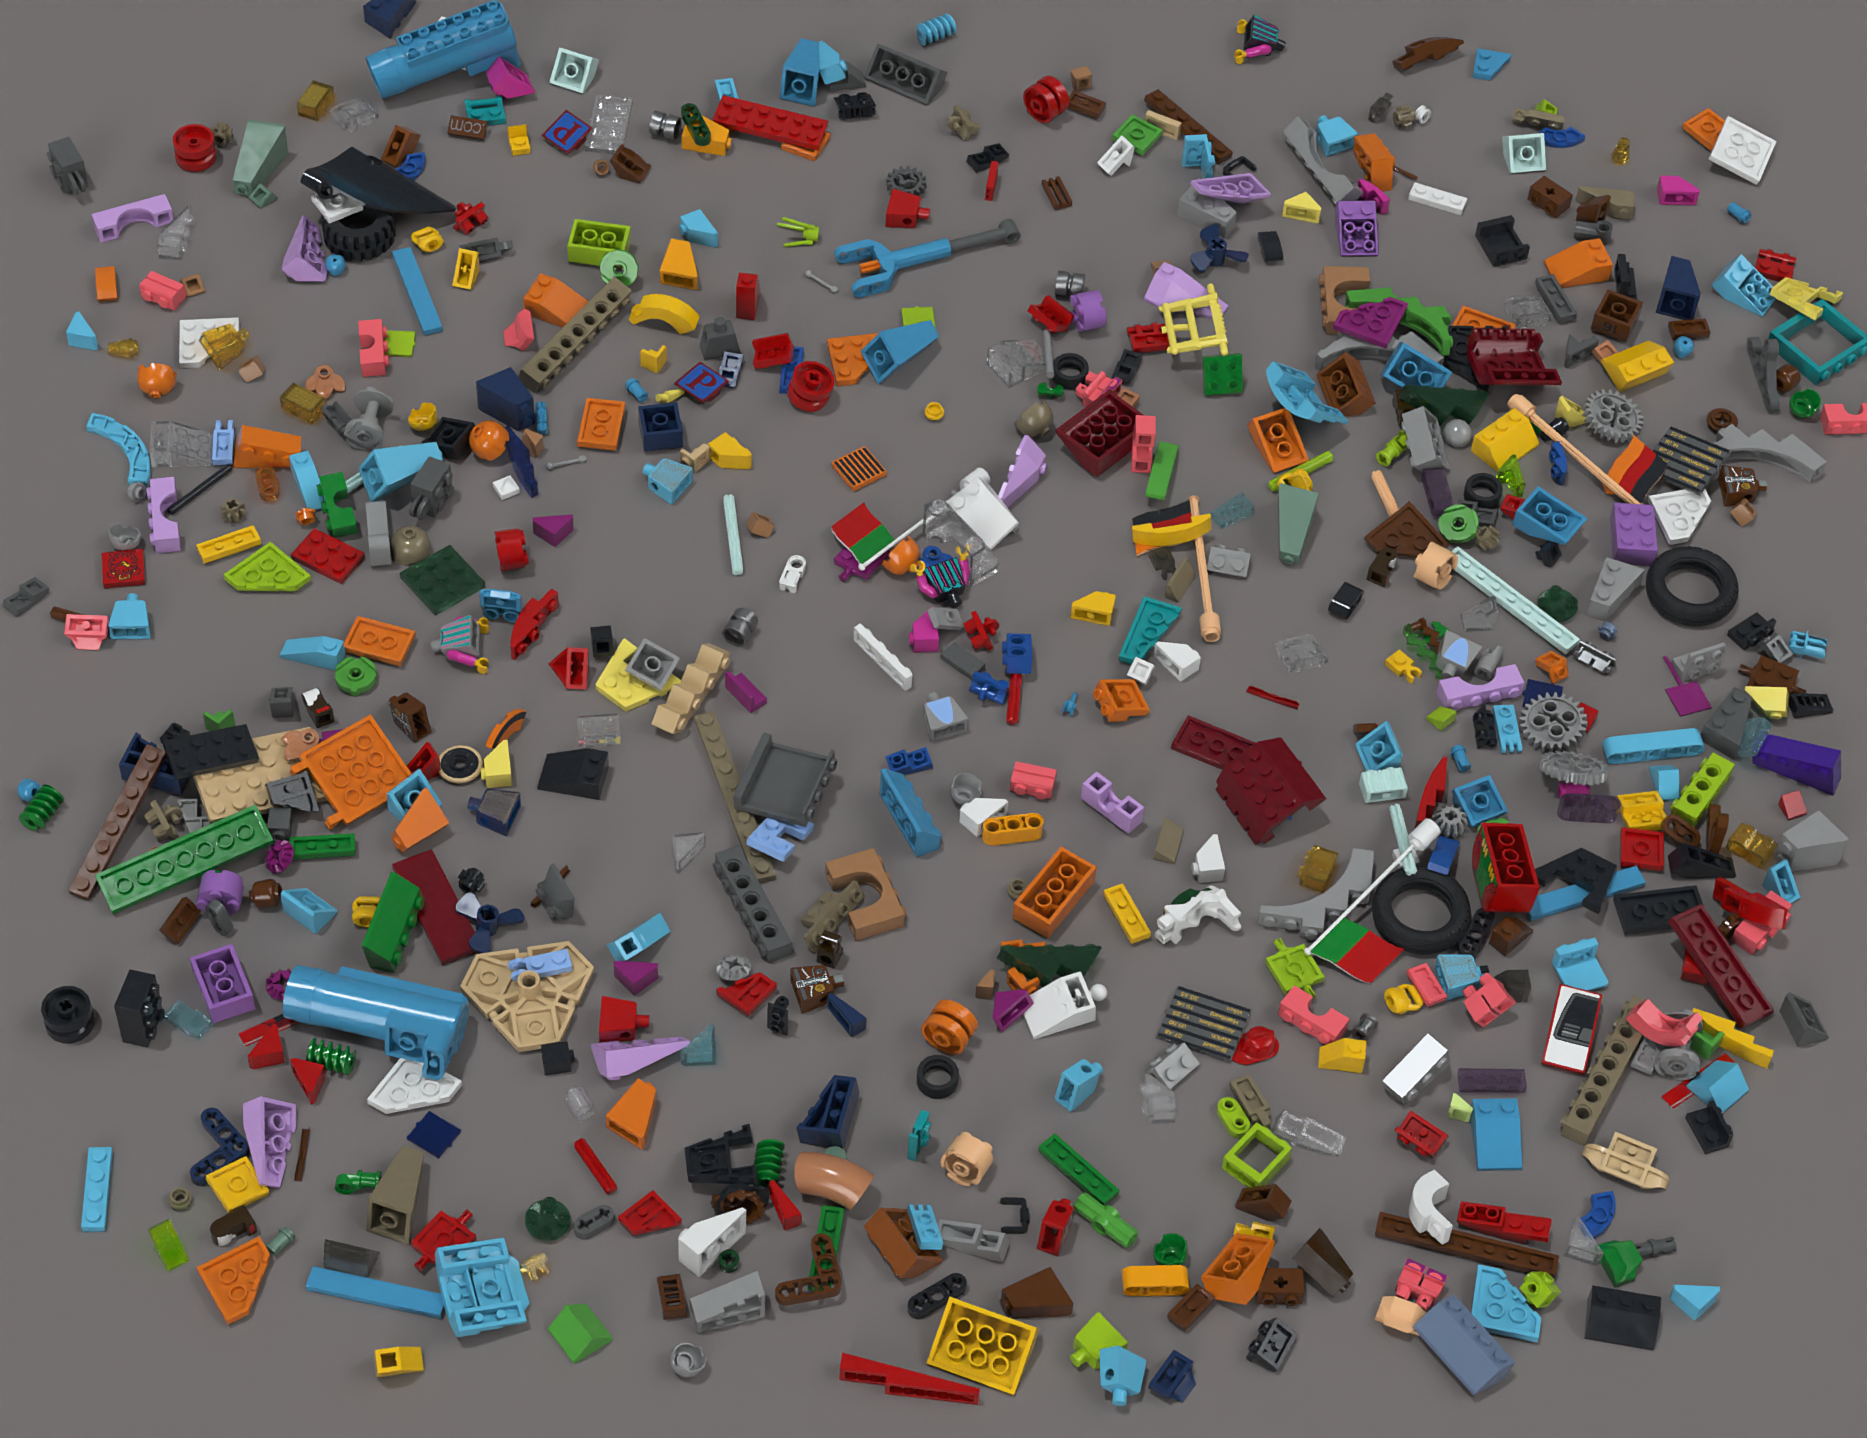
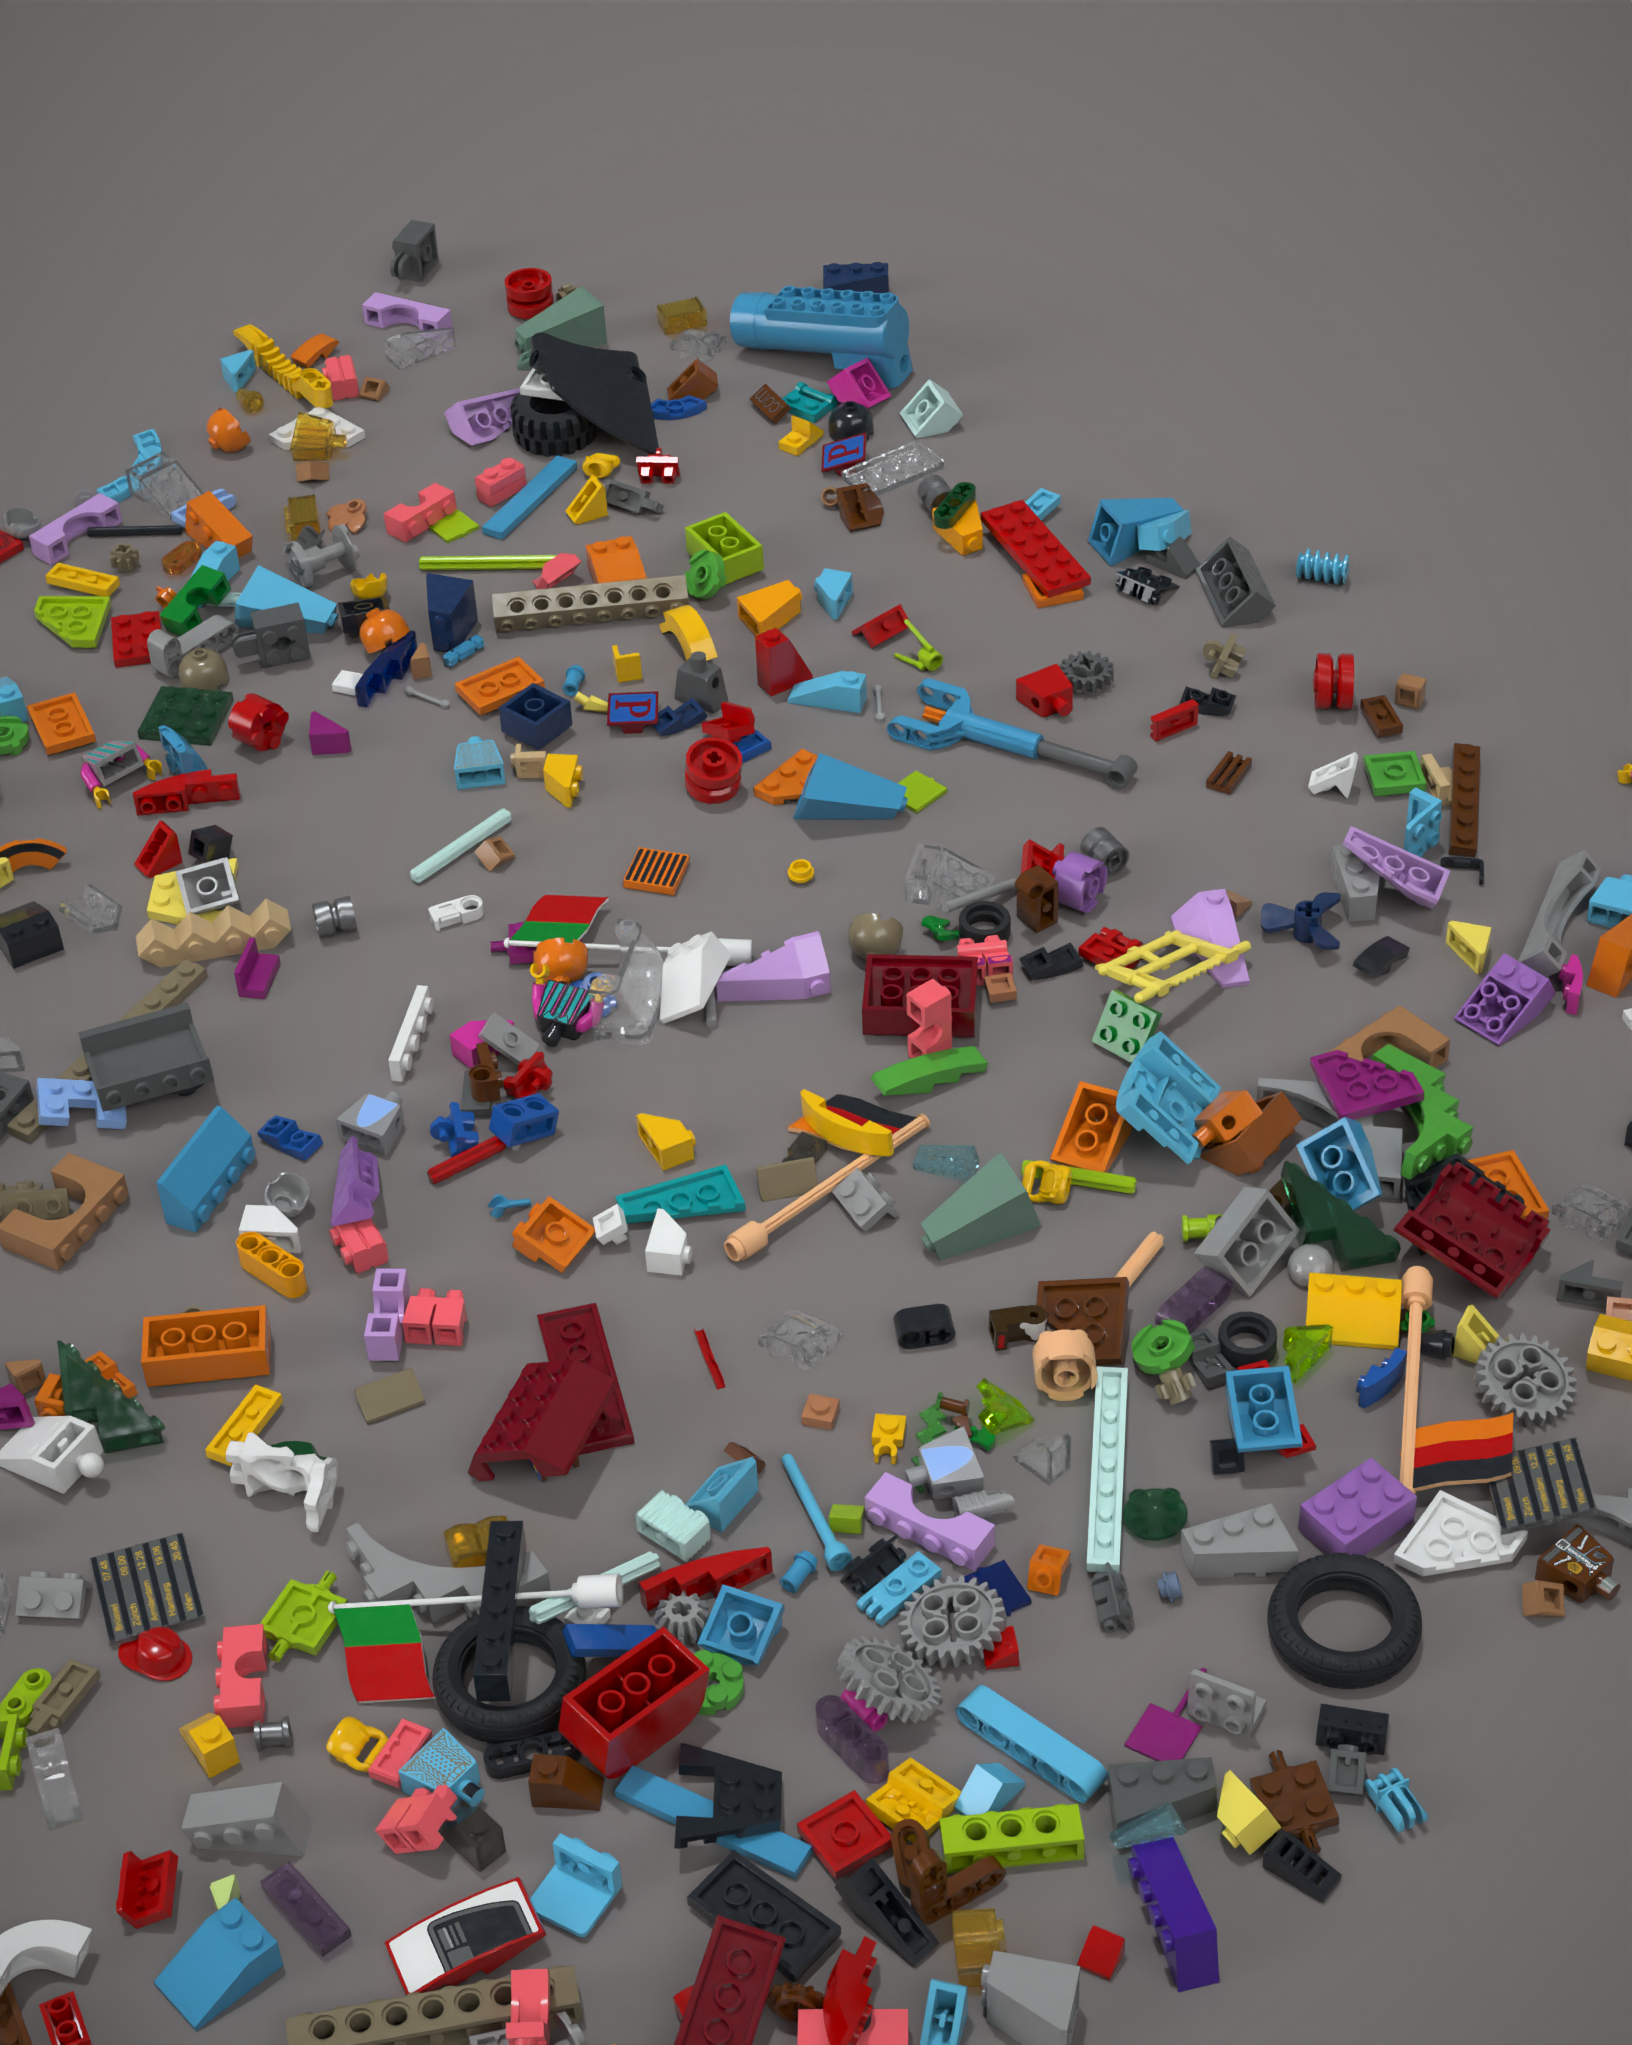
camera: 55 degrees right, 10 degrees down
(160, 308) = (300, 383): none -> yellow piece
(335, 264) = (497, 438): dark azure piece -> none
(390, 292) = (500, 481): none -> coral brick
(464, 351) = (503, 562): none -> lime axle
(537, 109) = (850, 420): none -> black cylinder
(754, 230) = (883, 626): none -> red panel
(791, 292) = (834, 691): none -> medium azure slope
(970, 647) = (483, 1077): none -> reddish brown plate
(992, 754) = (355, 1185): none -> medium lavender wedge
(1083, 335) = (1037, 899): none -> reddish brown hinge
(1135, 782) = (435, 1318): none -> coral hips
(1209, 862) = (392, 1445): white slope -> none
(1335, 385) = (1225, 1117): none -> orange torso
(1358, 679) = (820, 1411): none -> nougat plate
(1428, 902) = (498, 1609): none -> black arch
(1436, 612) = (1002, 1409): none -> clear neon green slope
(1463, 736) = (836, 1553): none -> medium azure piece

